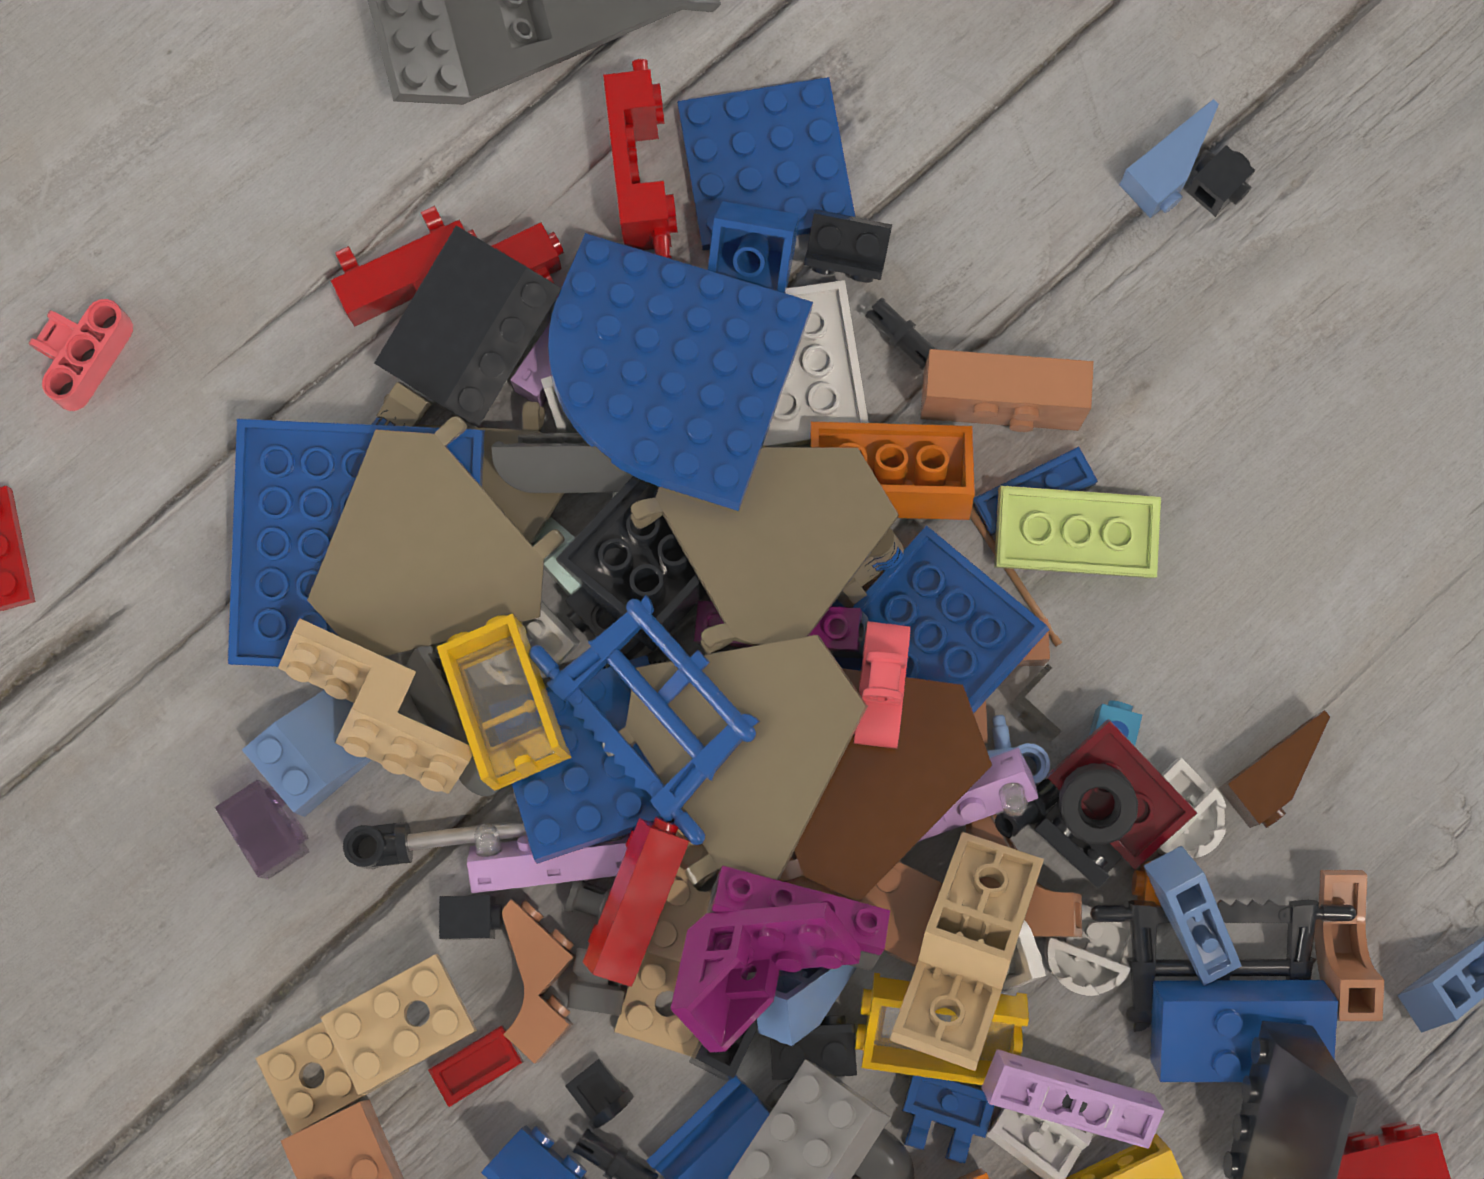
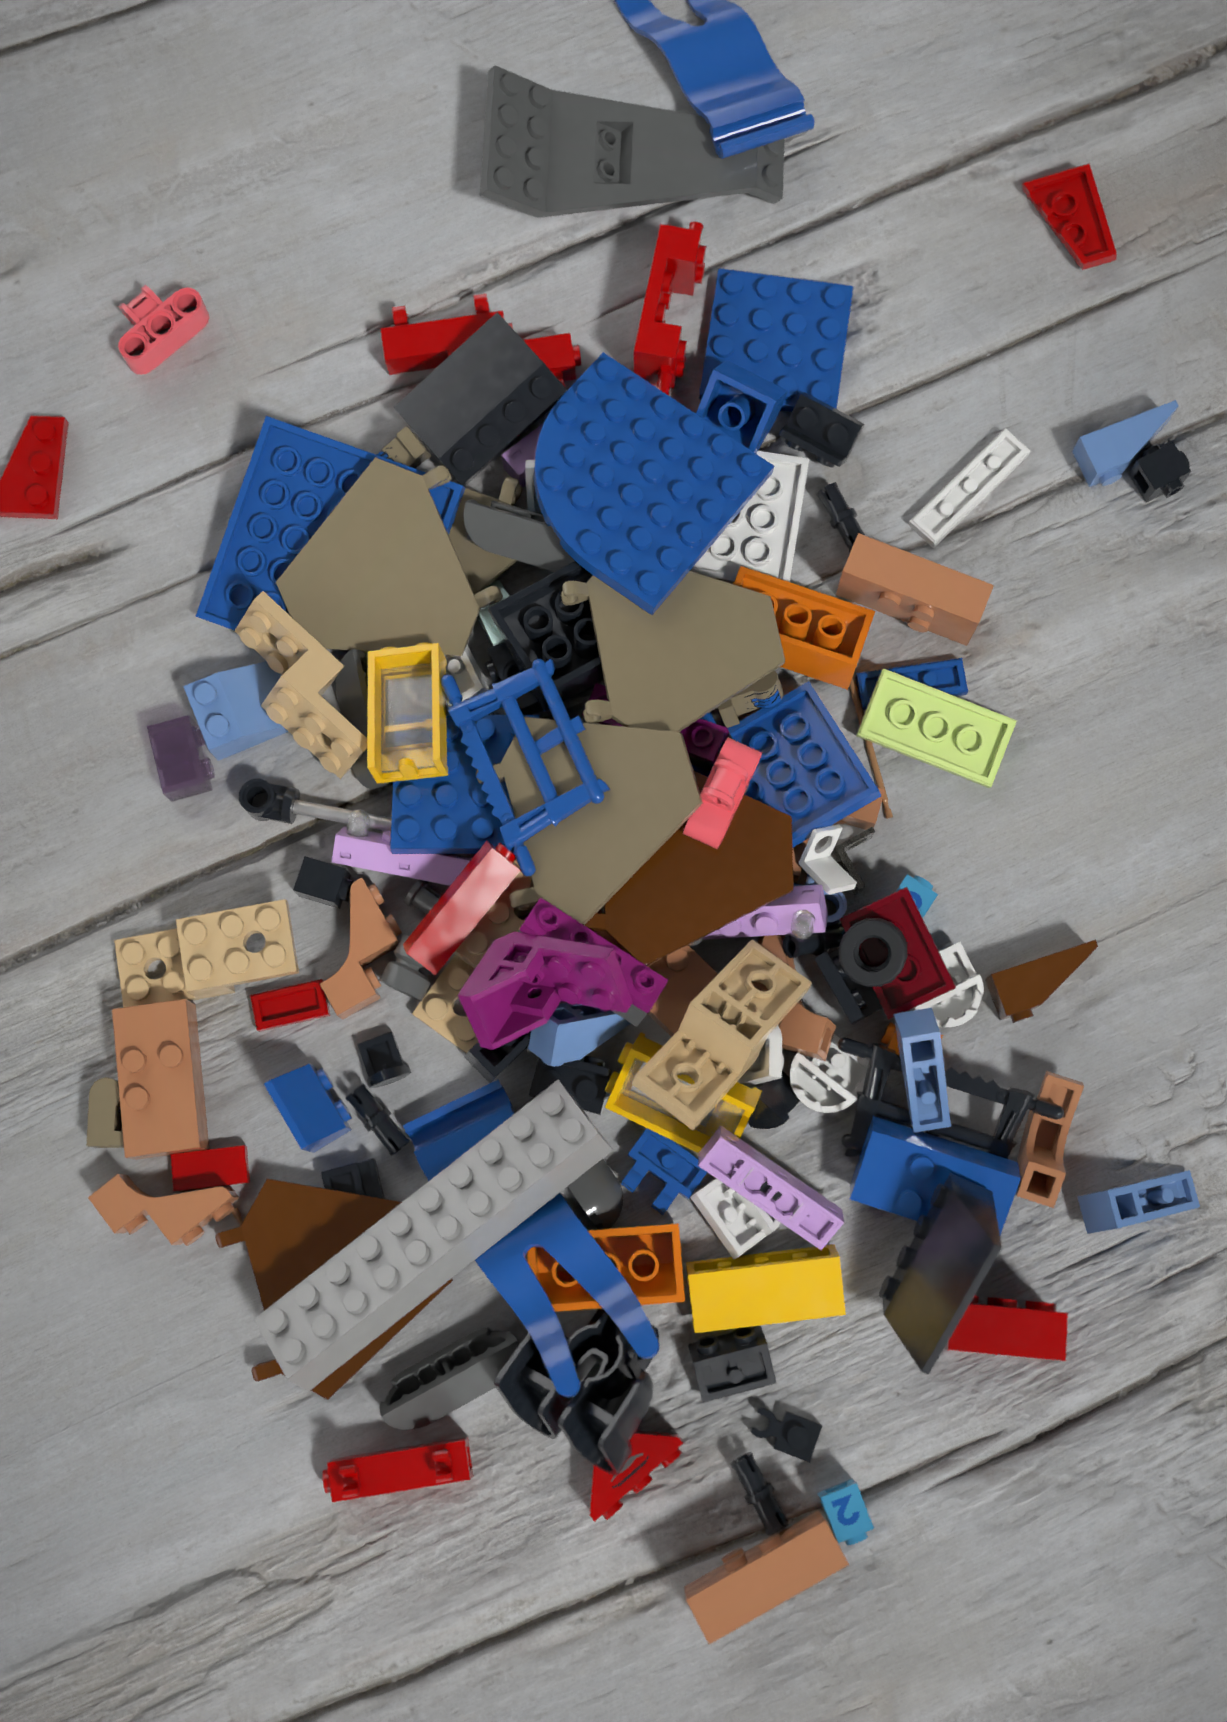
camera: 20 degrees right, 0 degrees up
(1010, 725) = (822, 866): none -> white bracket
(1024, 259) = (969, 488): none -> white tile
(1044, 1002) = (774, 1104): none -> black tile

